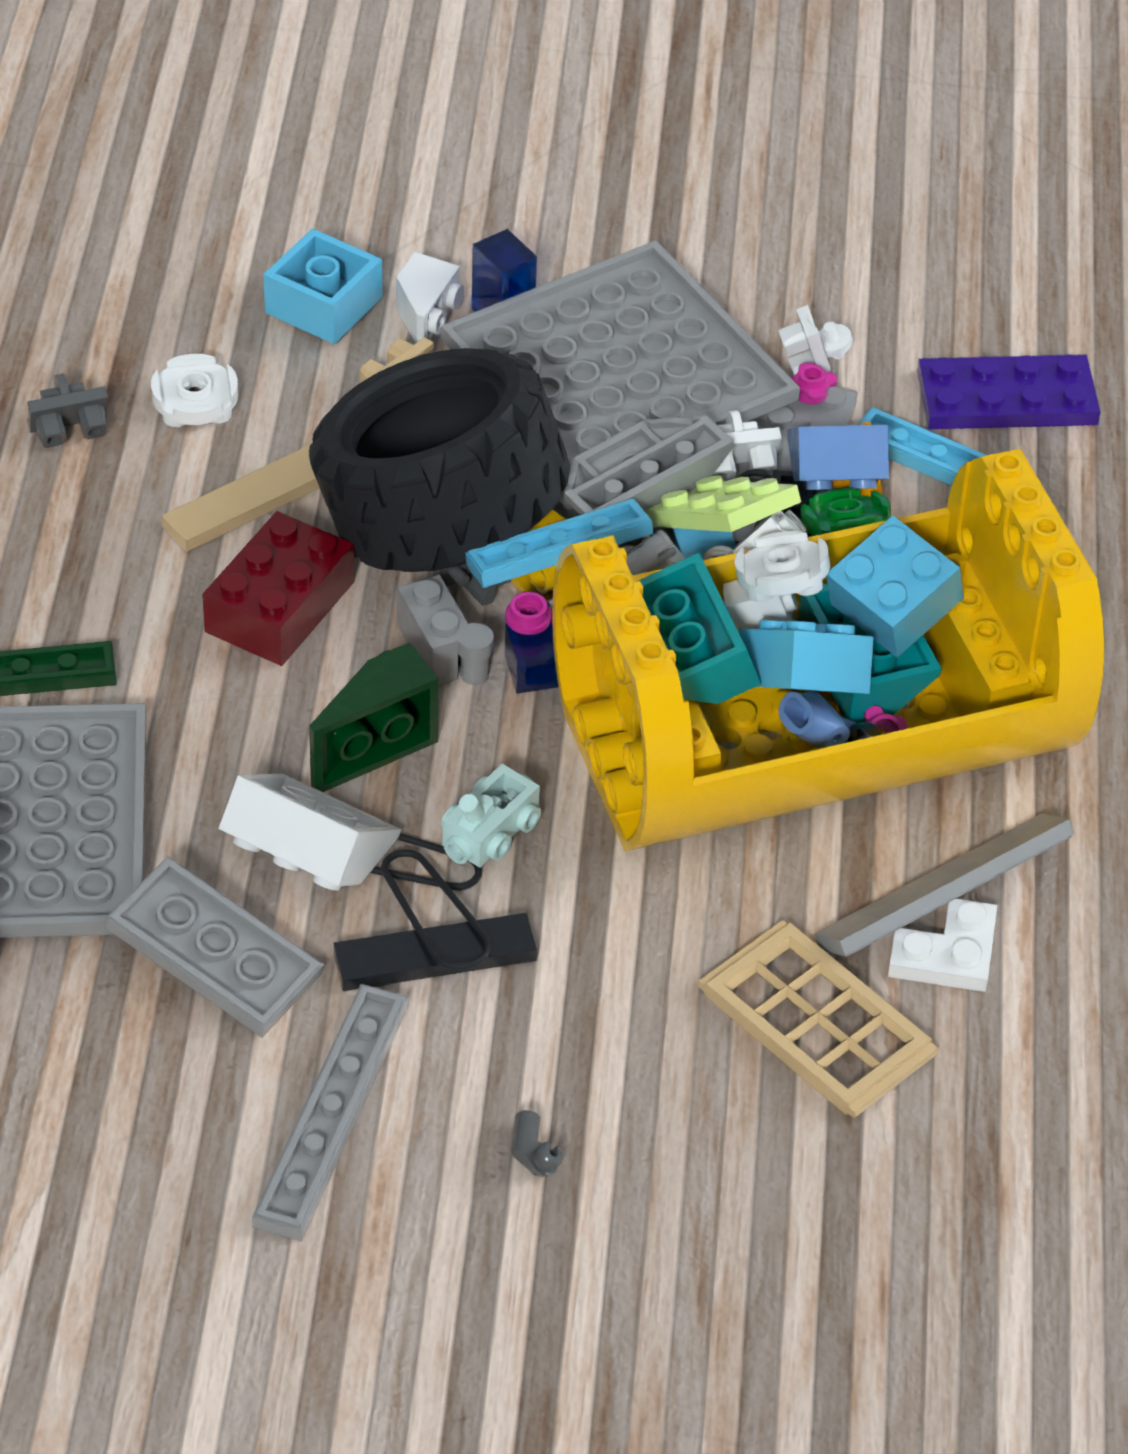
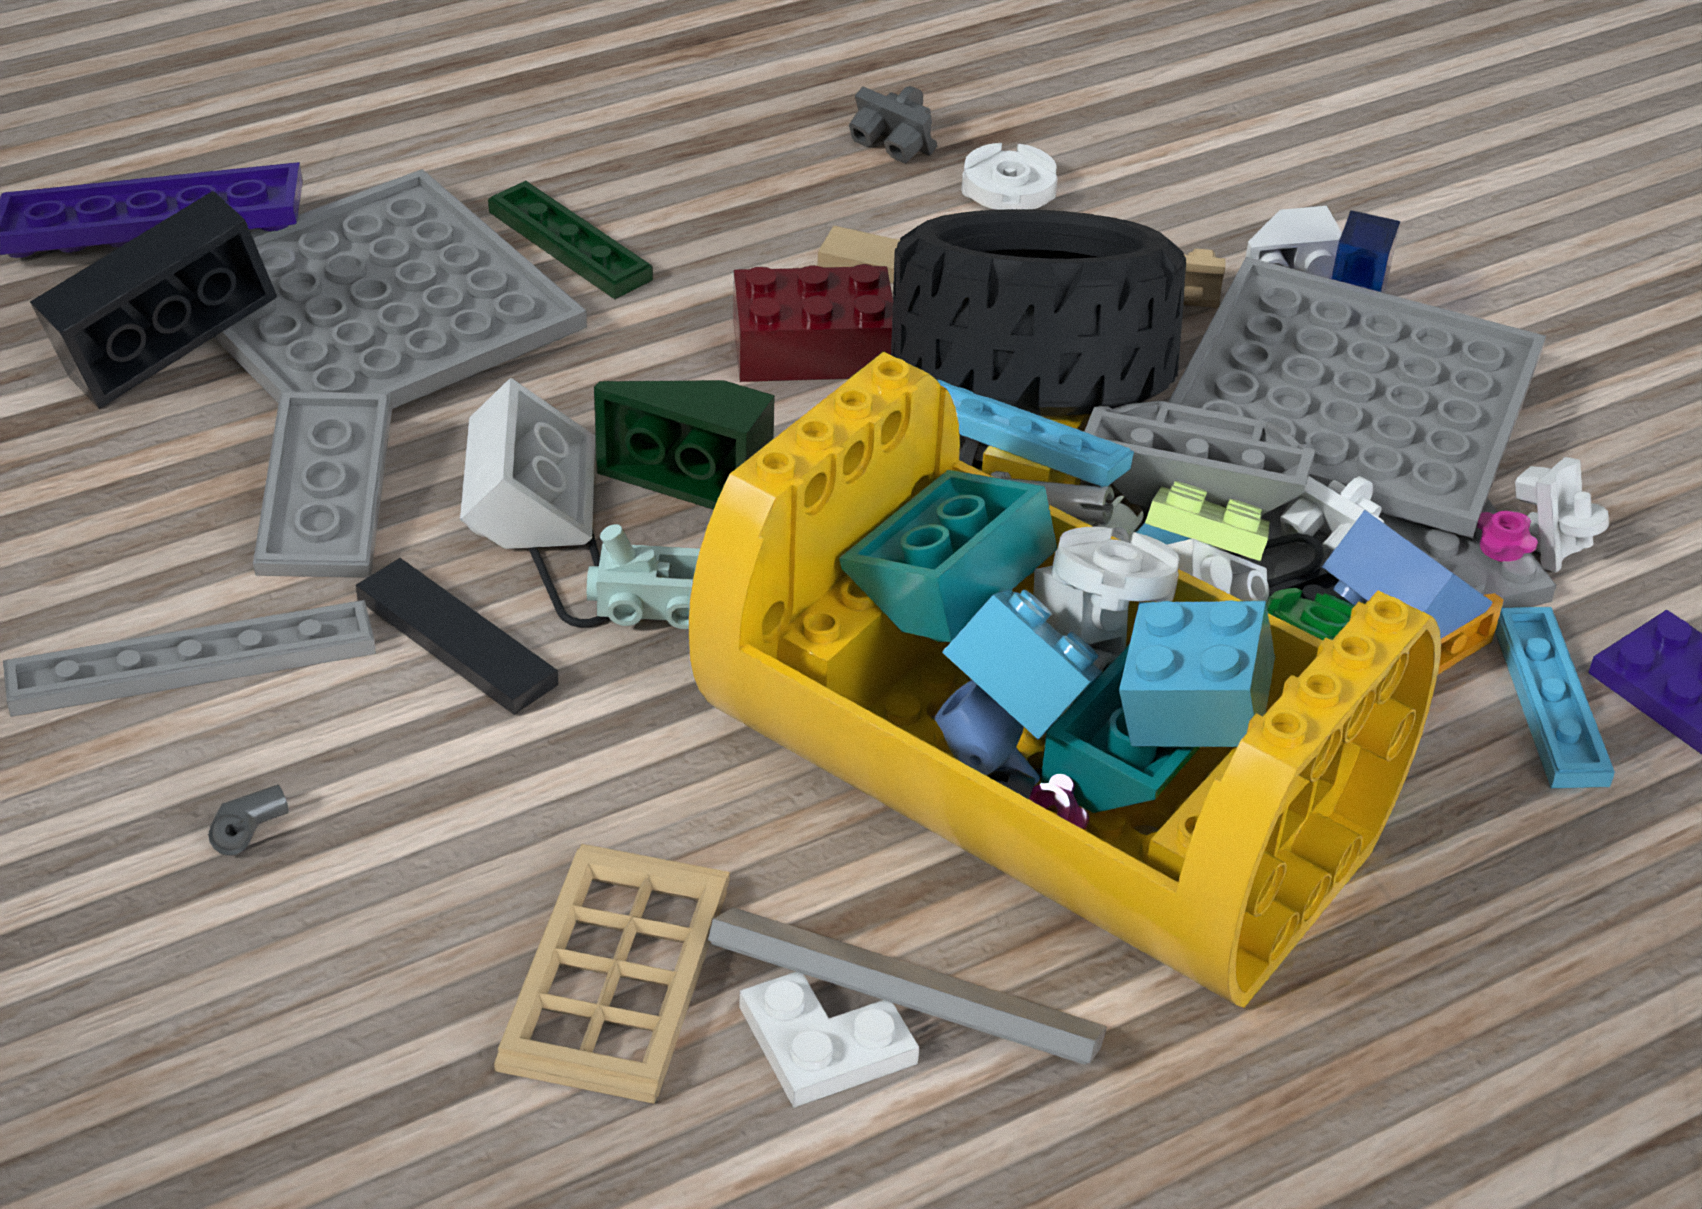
camera: 55 degrees right, 5 degrees down
(323, 286) = (1218, 180): medium azure brick -> none
(452, 896) = (521, 620): black piece -> none

